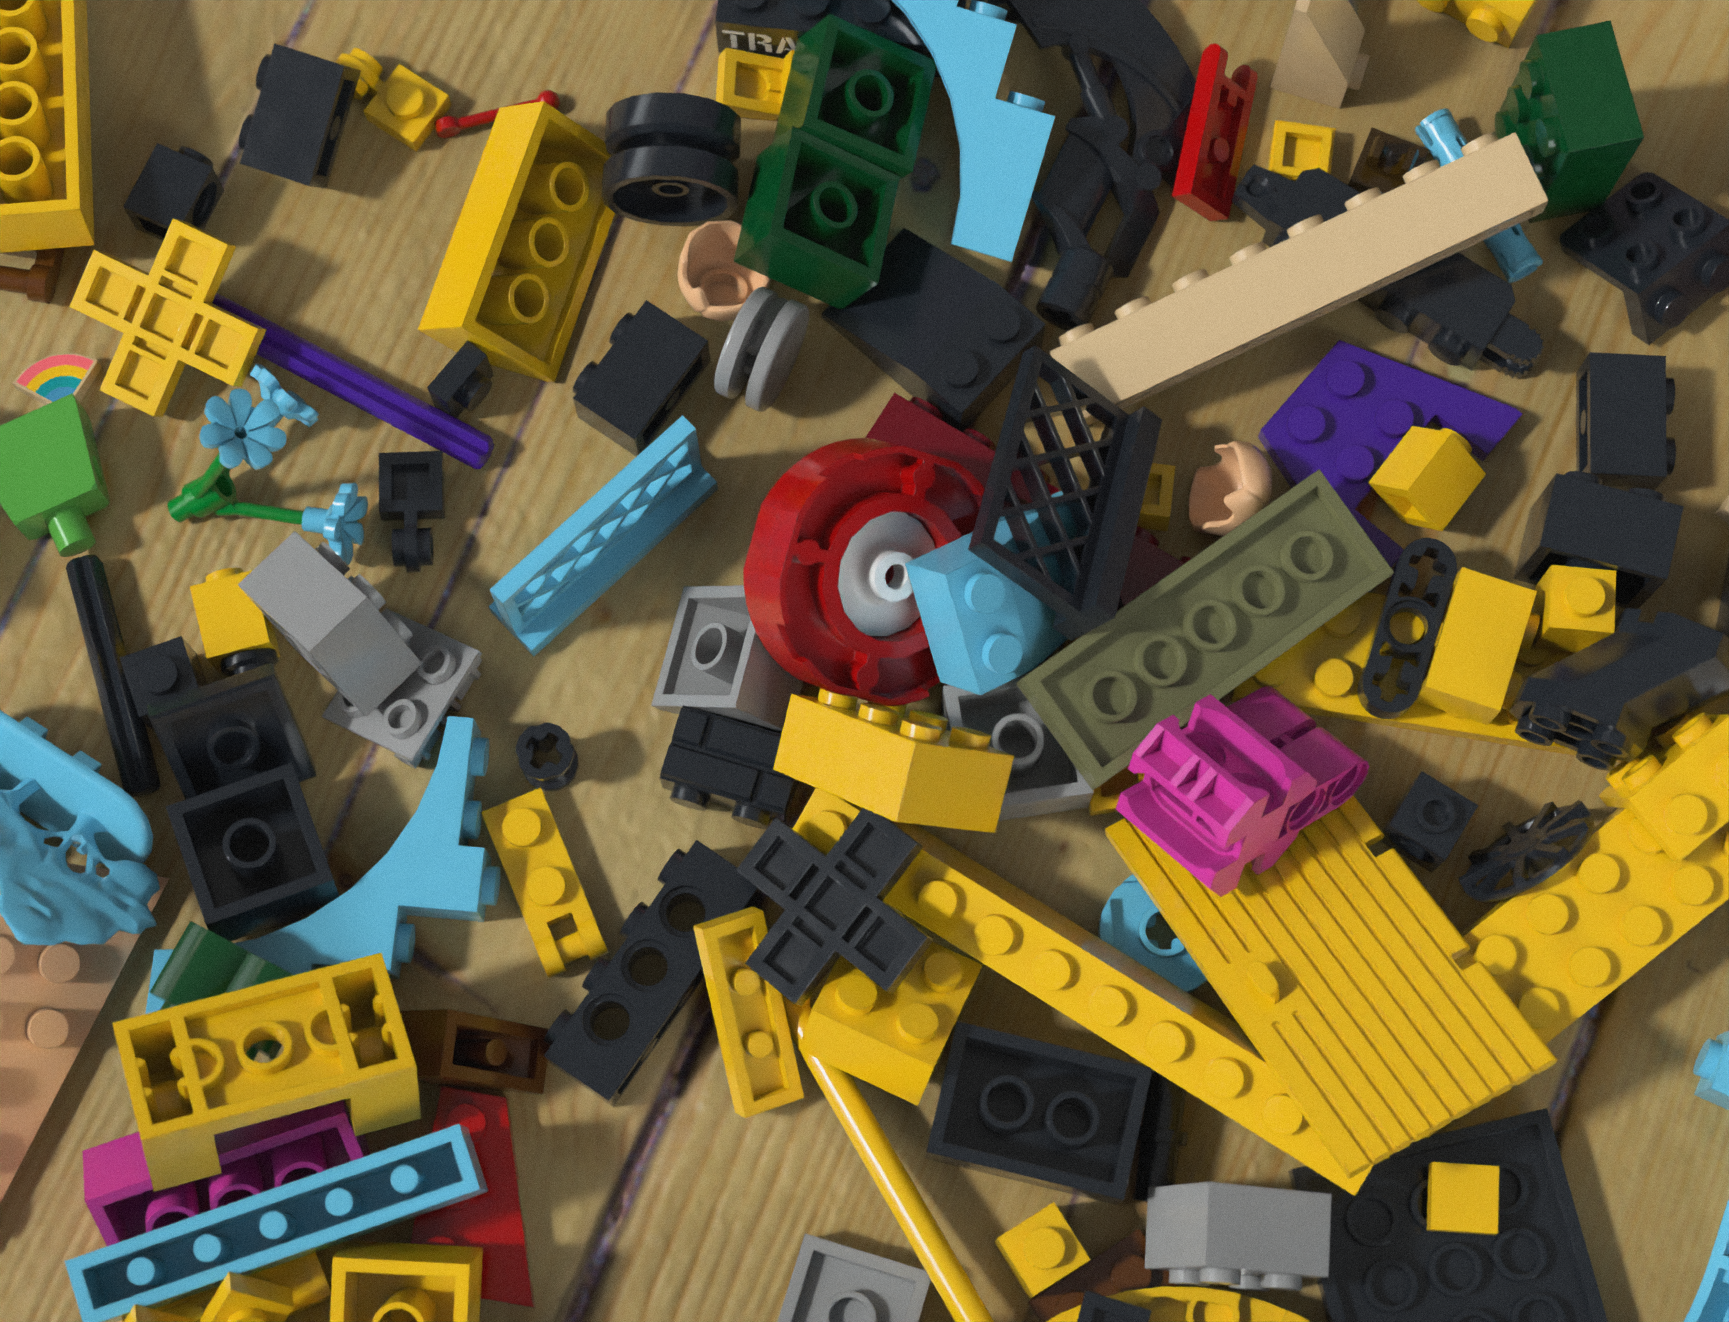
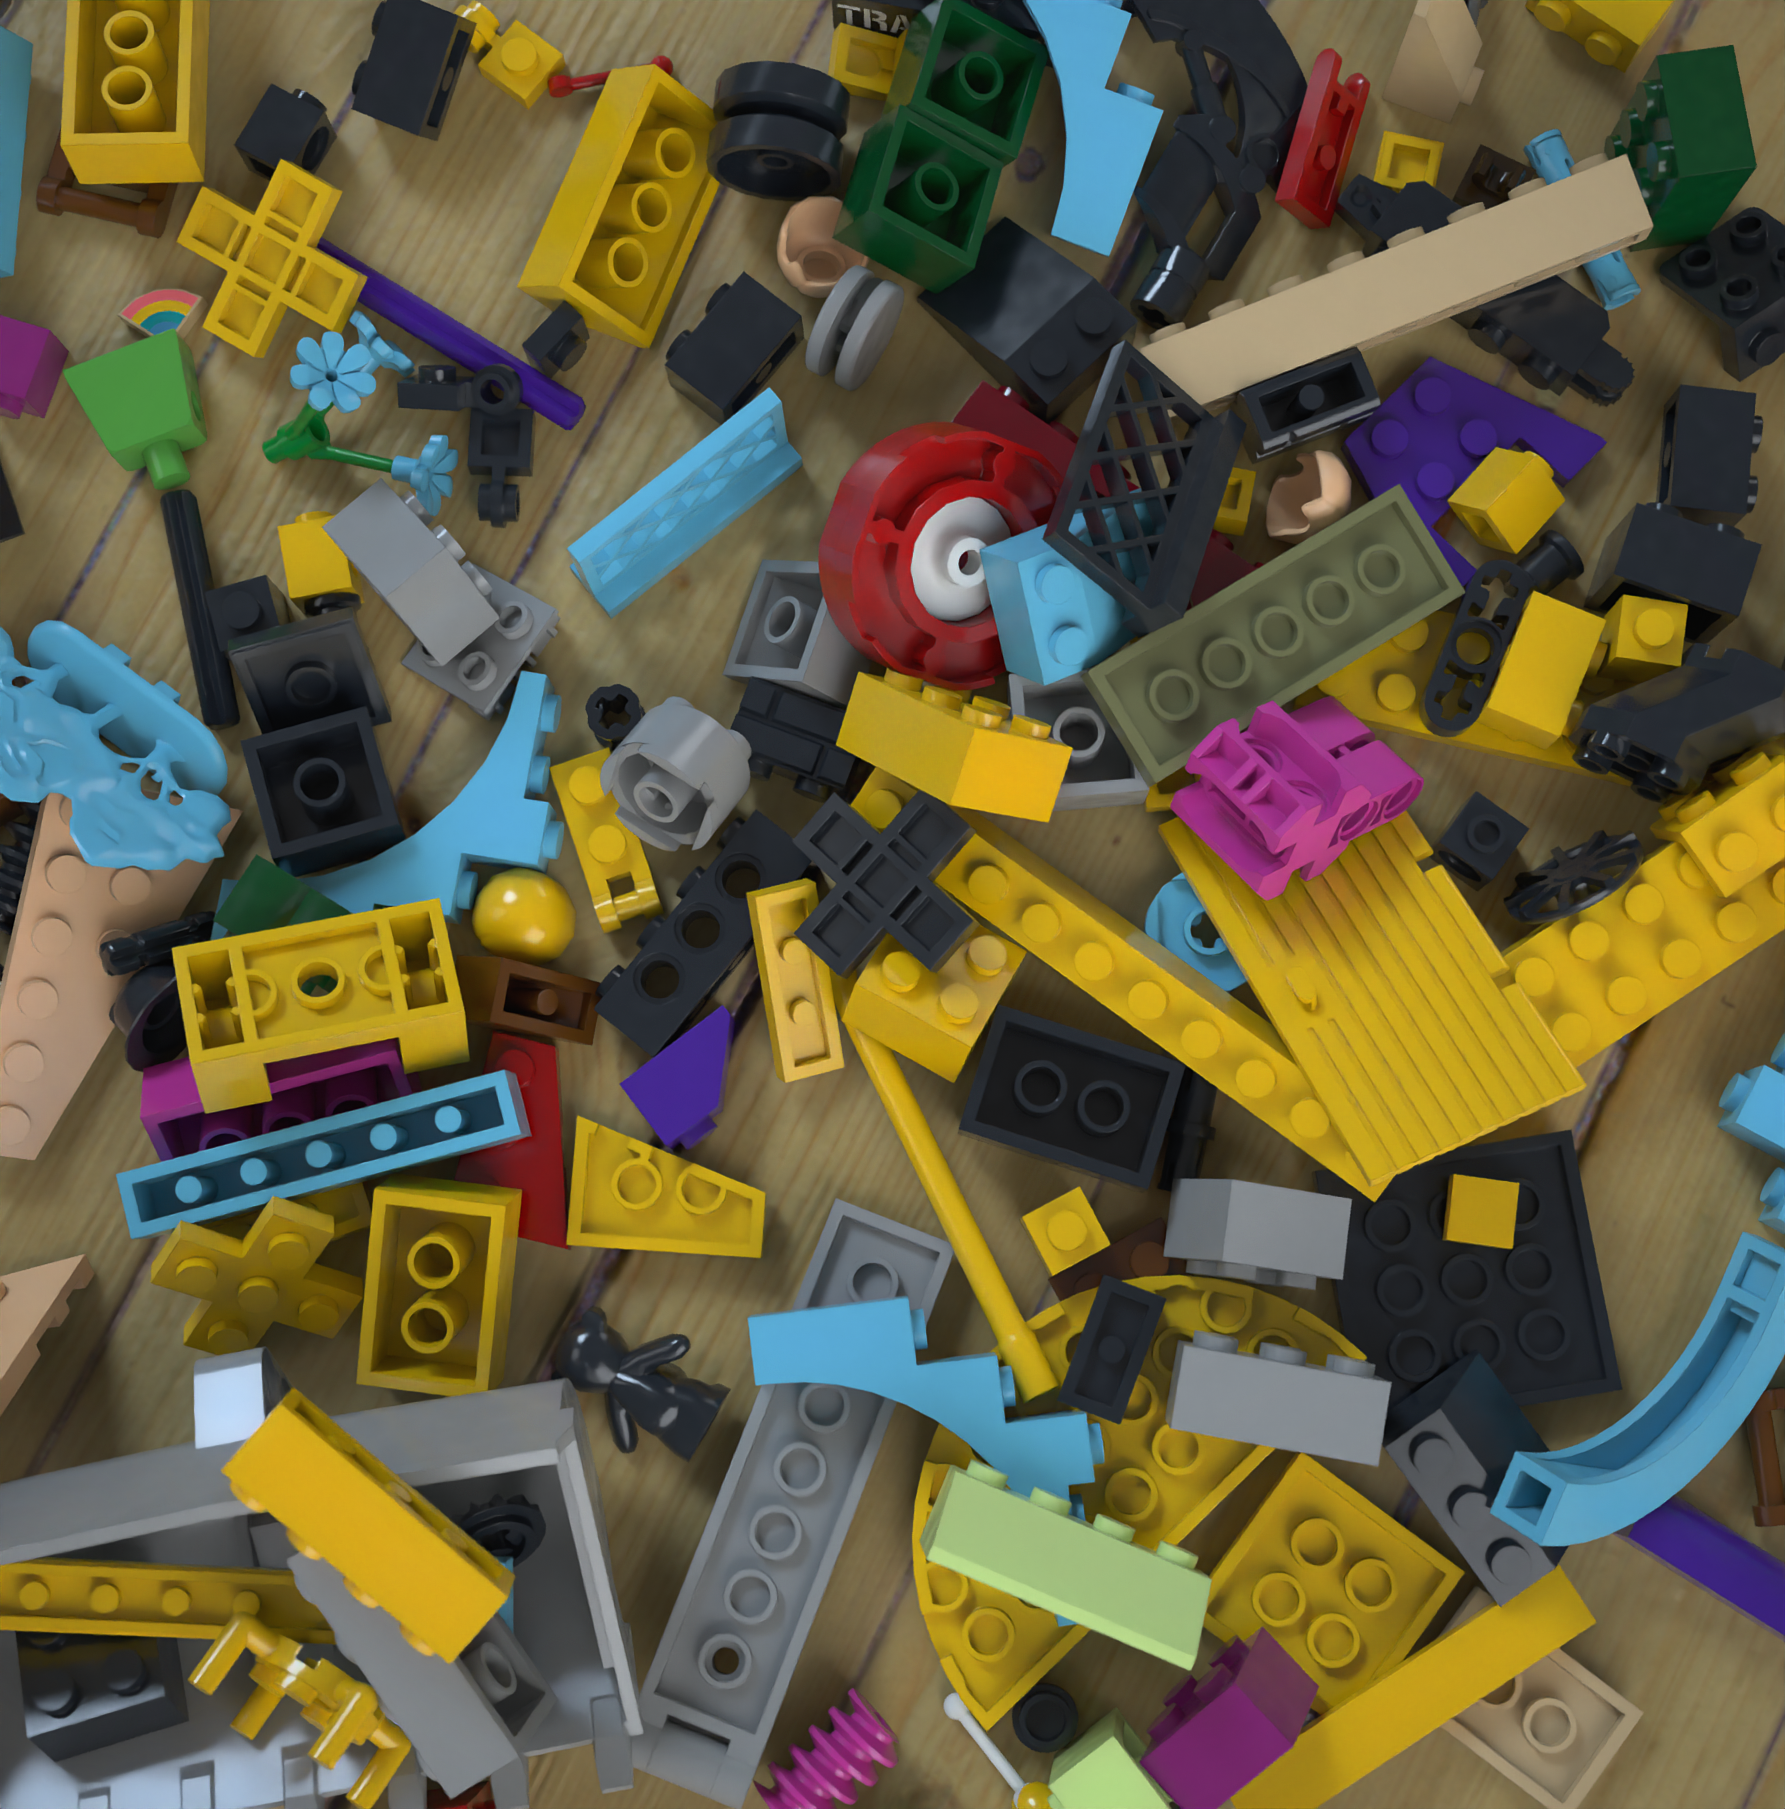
camera: 10 degrees right, 5 degrees up
(89, 1020) = (155, 943): none -> black axle
(90, 1094) = (150, 1016): none -> black piece
(348, 437) = (440, 389): none -> black plate
(464, 966) = (524, 916): none -> yellow hair
(613, 811) = (677, 775): none -> light grey brick
(620, 1250) = (655, 1201): none -> yellow wing
(643, 1125) = (686, 1082): none -> dark purple slope
(1219, 396) = (1306, 405): none -> black brick
(1476, 538) = (1550, 563): none -> black bush

